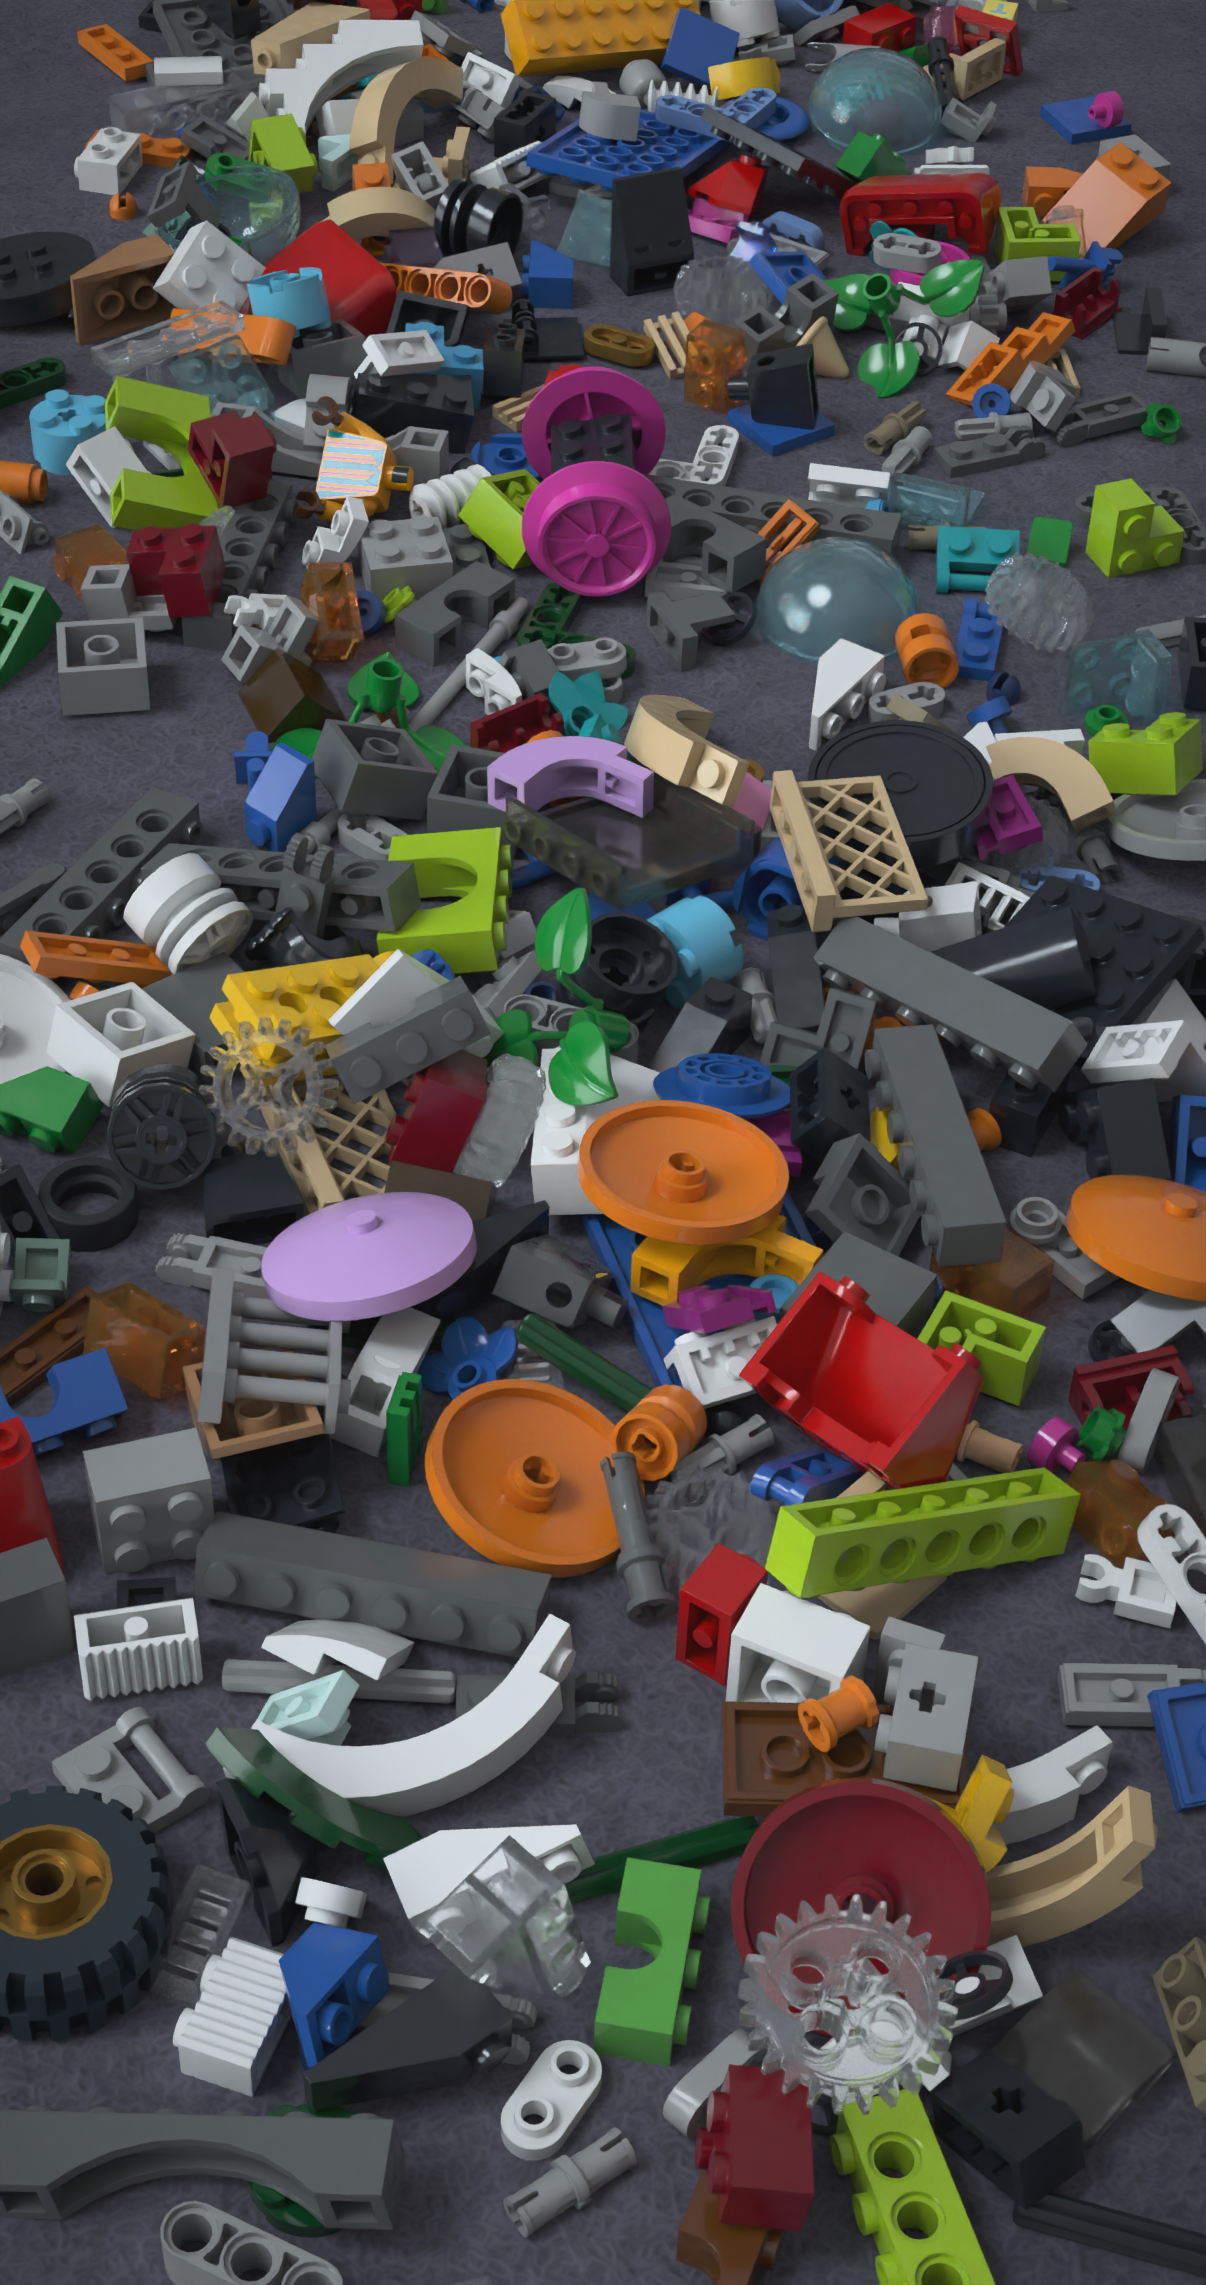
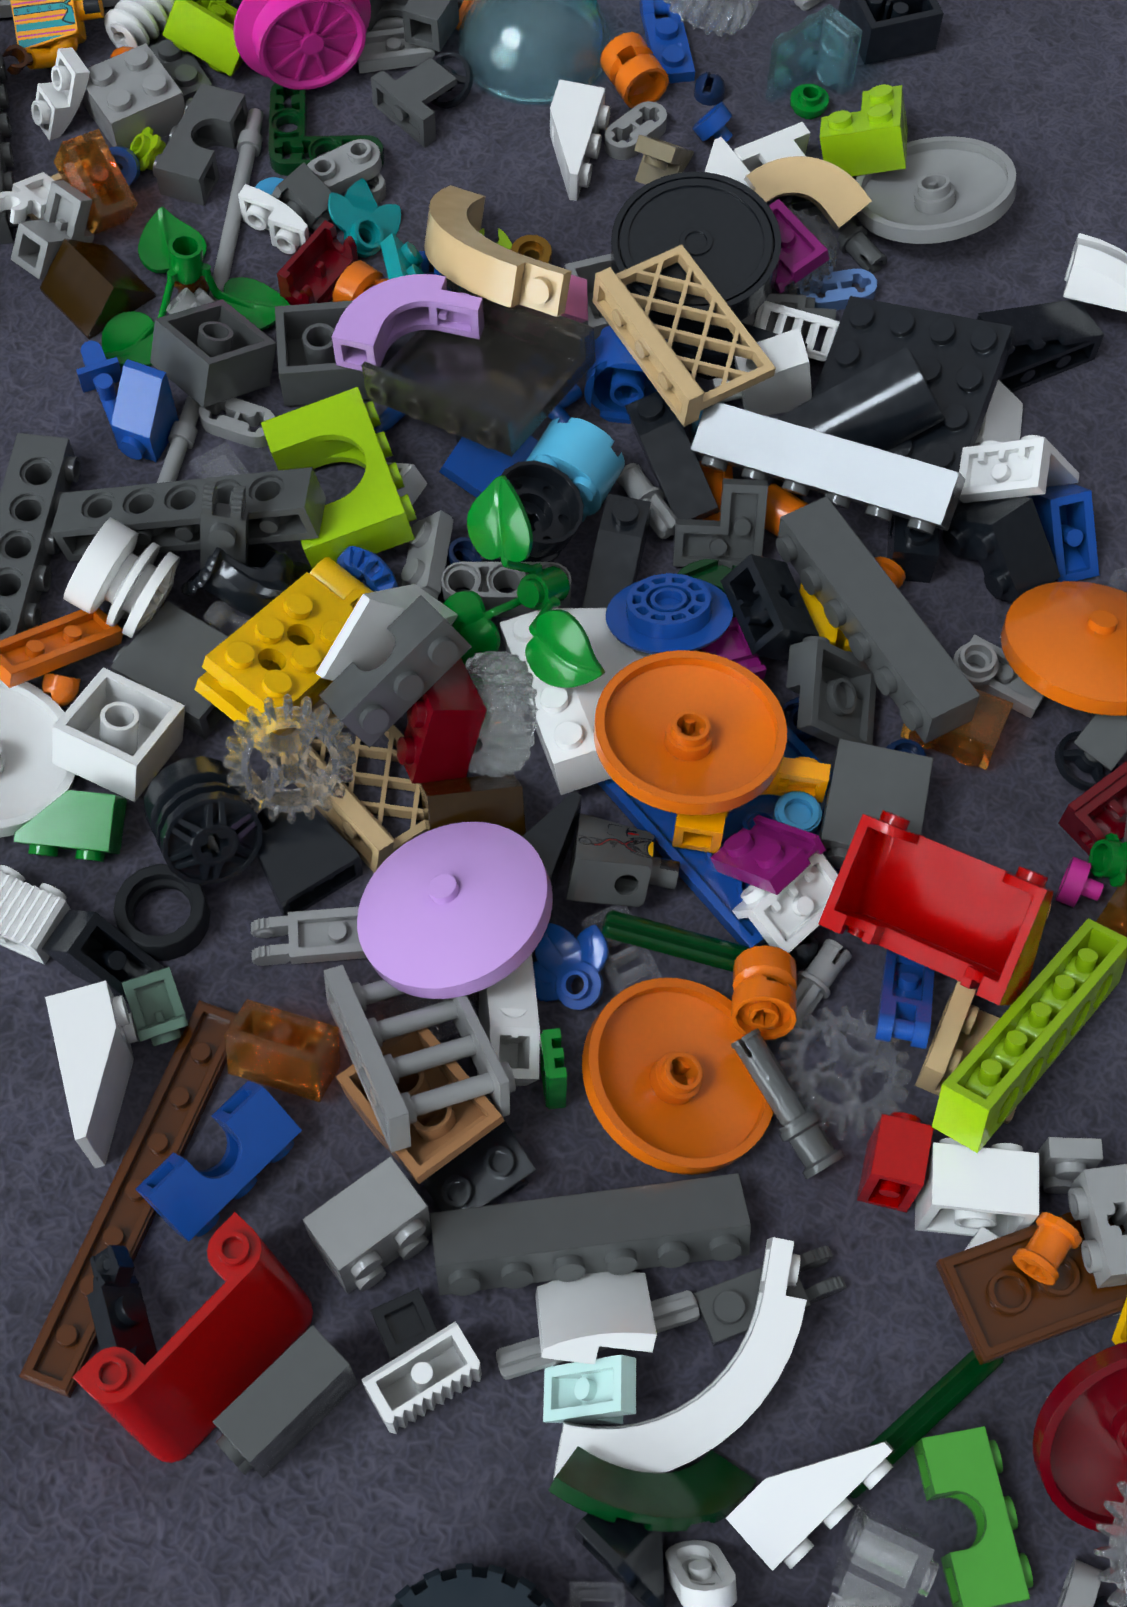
camera: 20 degrees left, 20 degrees up
(103, 1769) = (457, 1520): light grey plate -> none
(1001, 1341) = (982, 809): lime brick -> none

